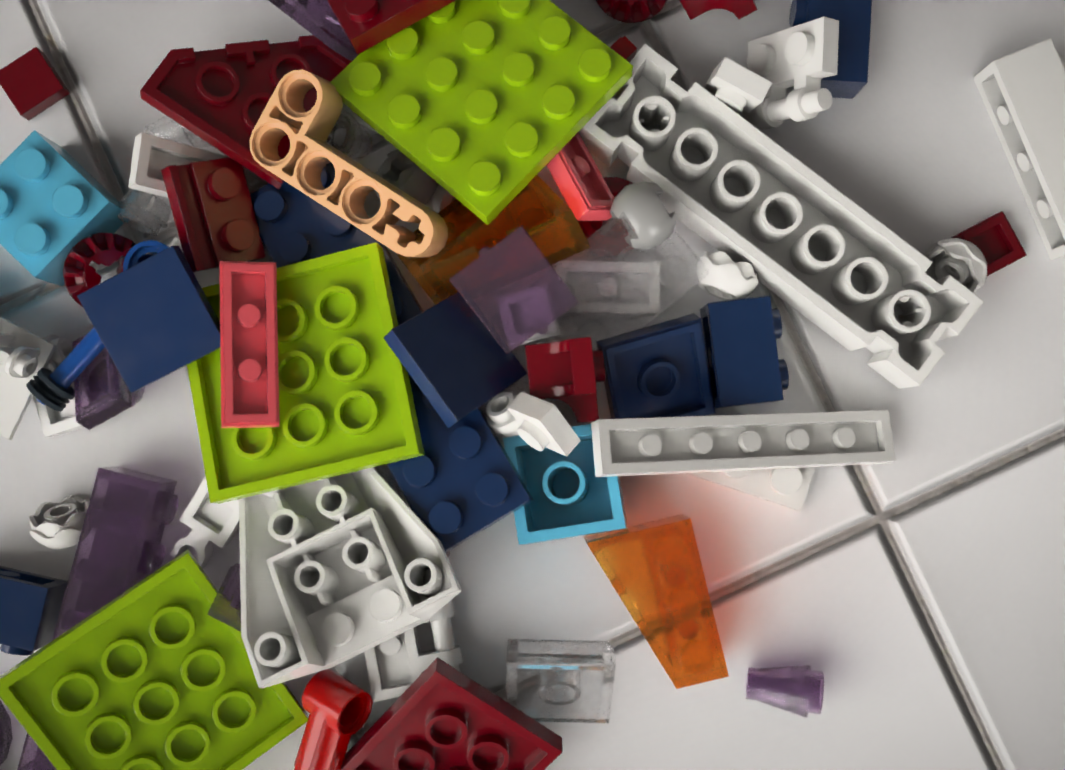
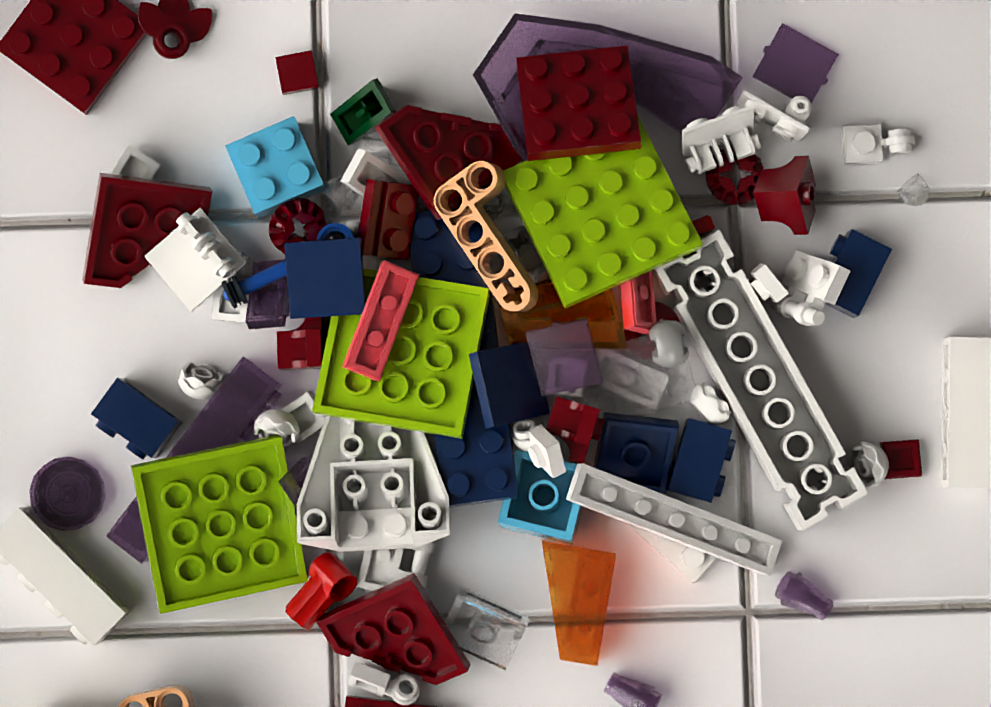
camera: 25 degrees right, 0 degrees up
(120, 98) = (363, 112): none -> dark green slope
(169, 425) = (303, 346): none -> dark red brick
(179, 536) = (277, 423): none -> white plate
(942, 468) = (800, 594): none -> clear purple cone

